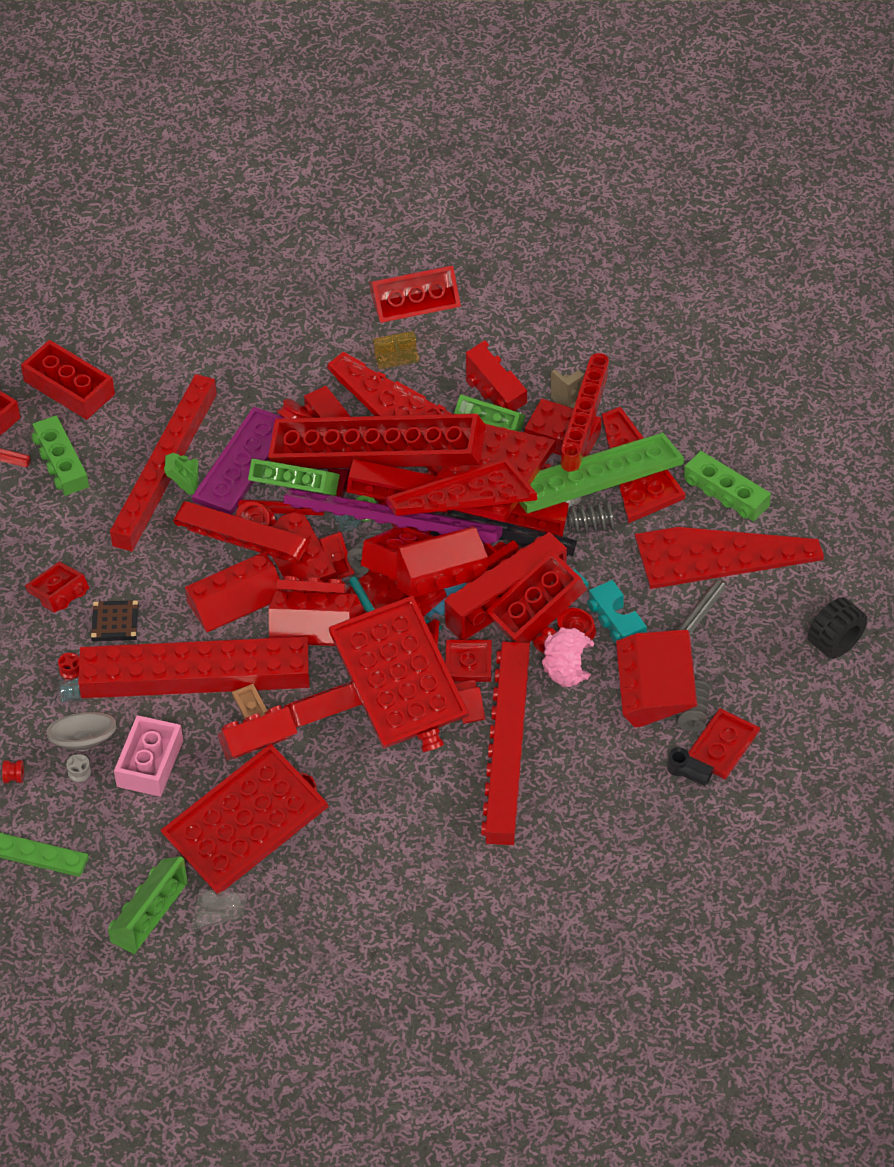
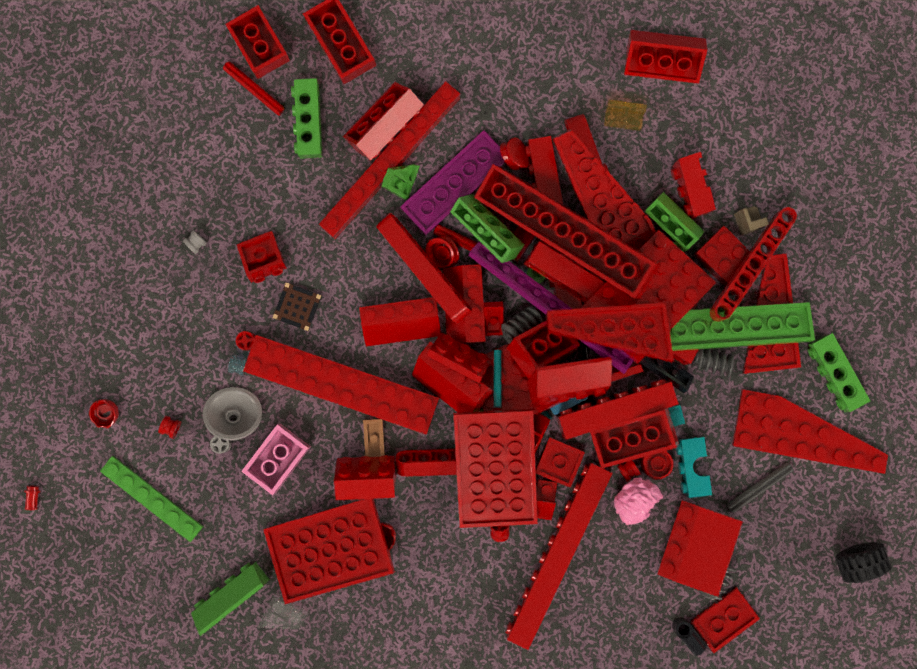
camera: 20 degrees right, 35 degrees up
(143, 426) = (383, 121): none -> brick

